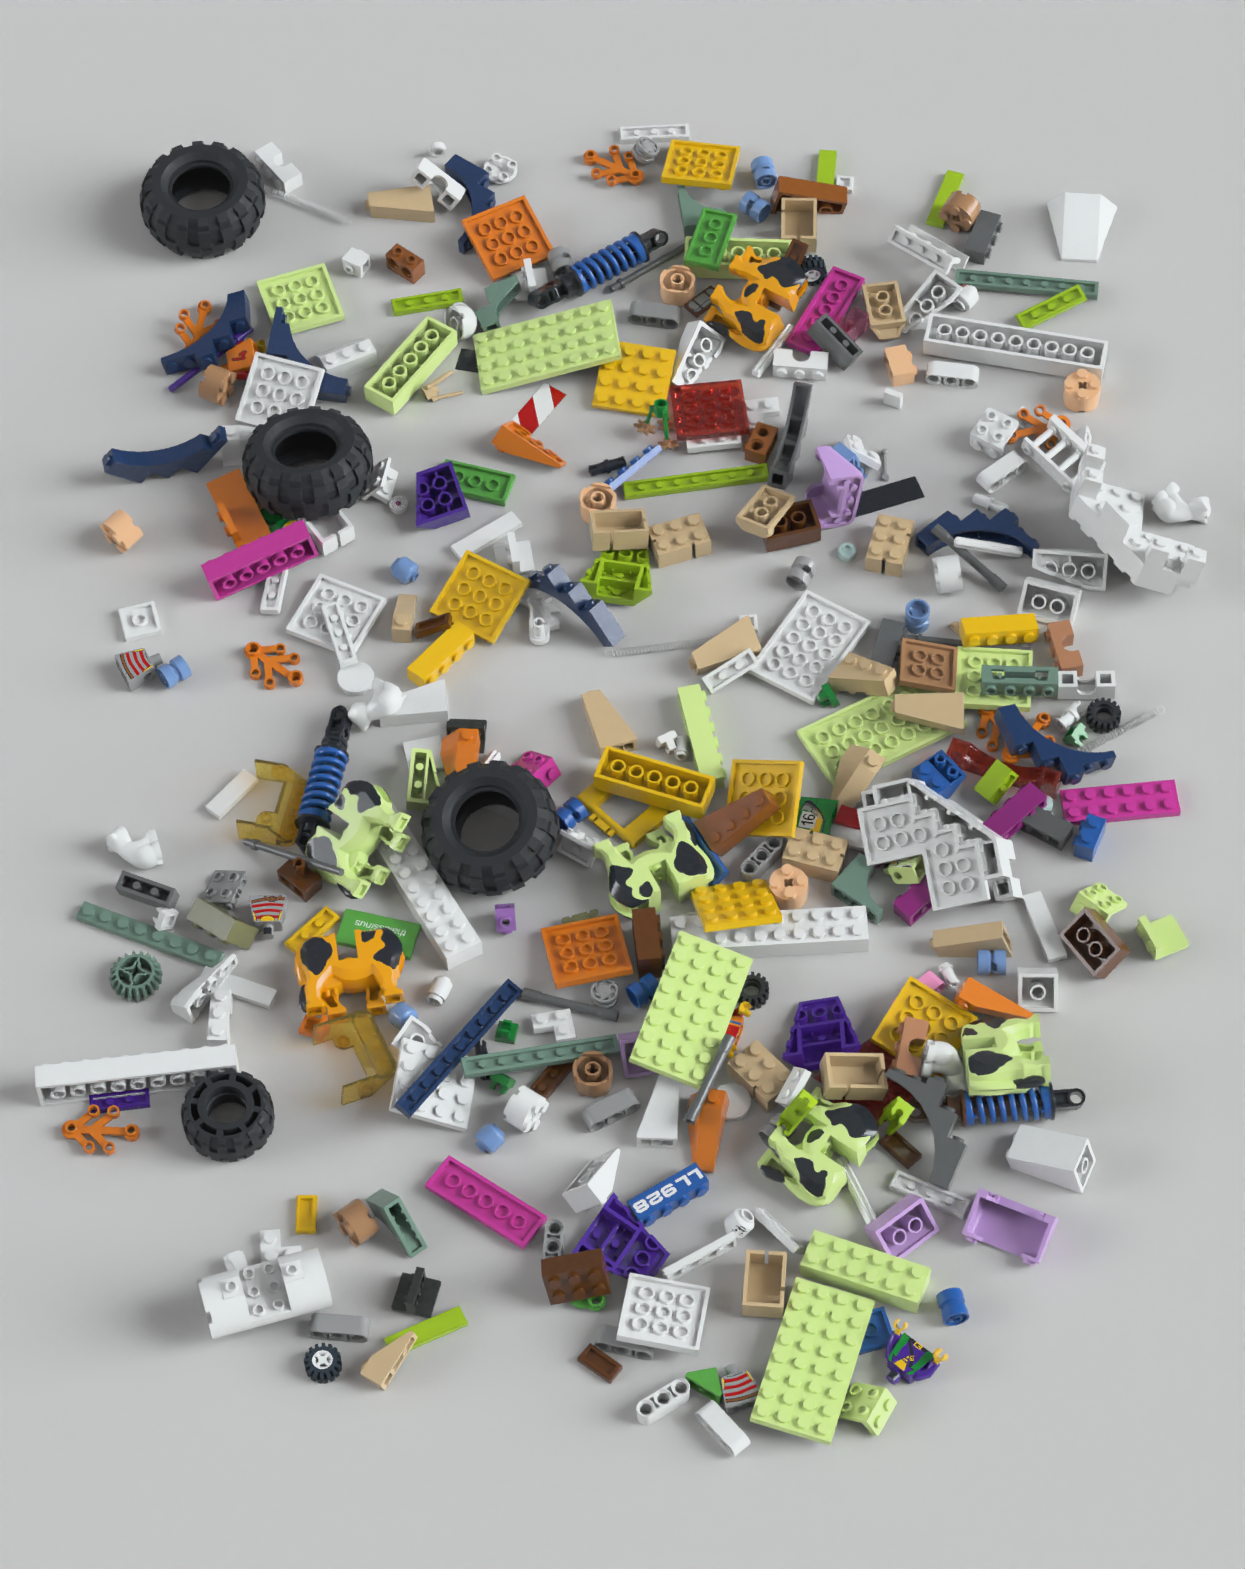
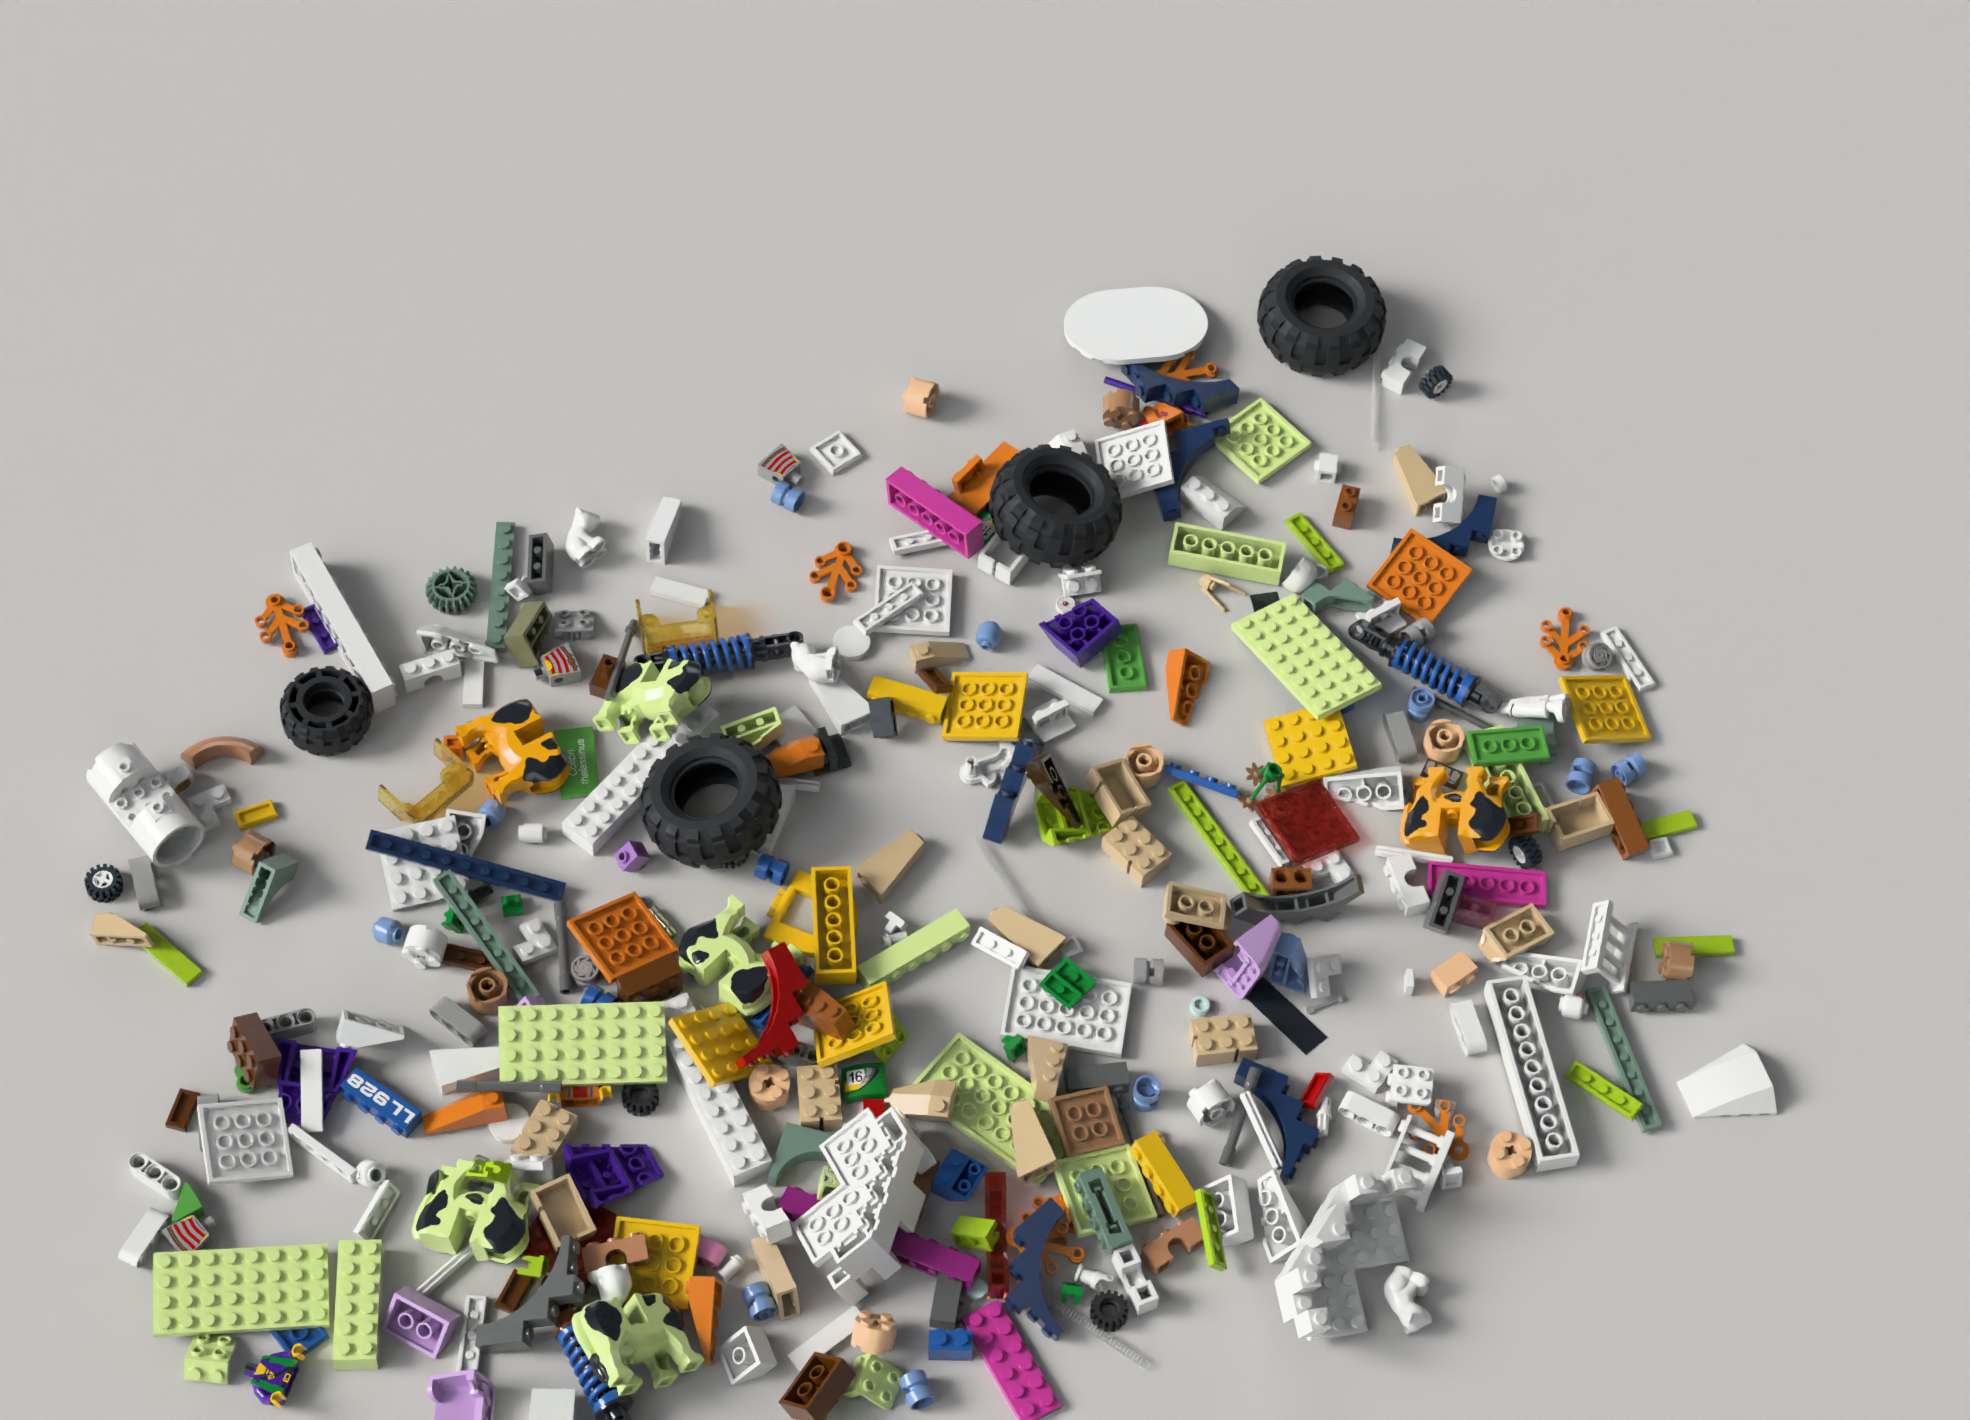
camera: 60 degrees right, 0 degrees up
(128, 342) = (1135, 325): none -> white tile
(160, 781) = (662, 530): none -> white slope
(165, 462) = (1015, 403): dark blue arch -> none
(216, 1219) = (222, 746): none -> nougat brick
(310, 150) = (1435, 381): none -> black wheel
(316, 926) = (560, 709): yellow tile -> none
(416, 1294) = (200, 932): pearl dark grey bracket -> none
(455, 675) = (883, 717): none -> black hinge
(486, 1202) = (319, 953): dark pink plate -> none
(538, 407) = (1239, 680): sticker -> none
(540, 766) = (808, 824): dark pink bracket -> none
(577, 846) = (745, 888): white bracket -> none
(590, 567) = (1049, 782): none -> dark brown wedge
(607, 466) = (1197, 760): black pin -> none
(633, 287) = (1420, 705): none -> medium blue wheel
(635, 1244) = (312, 1091): none -> white tile
(682, 204) = (1538, 707): none -> white piece
(730, 841) = (786, 984): none -> red arch
(764, 1284) = (310, 1217): tan piece -> none
(788, 633) = (1068, 983): none -> green slope
(930, 925) = (770, 1222): none -> white arch
(952, 1306) = (344, 1398): blue wheel -> none
(964, 457) = (1369, 1075): none -> white plate
(964, 498) = (1316, 1090): none -> red tile
(1060, 884) = (874, 1332): none -> light nougat brick
(1065, 614) = (1210, 1230): none -> lime tile
(1121, 874) = (917, 1391): none -> medium blue wheel

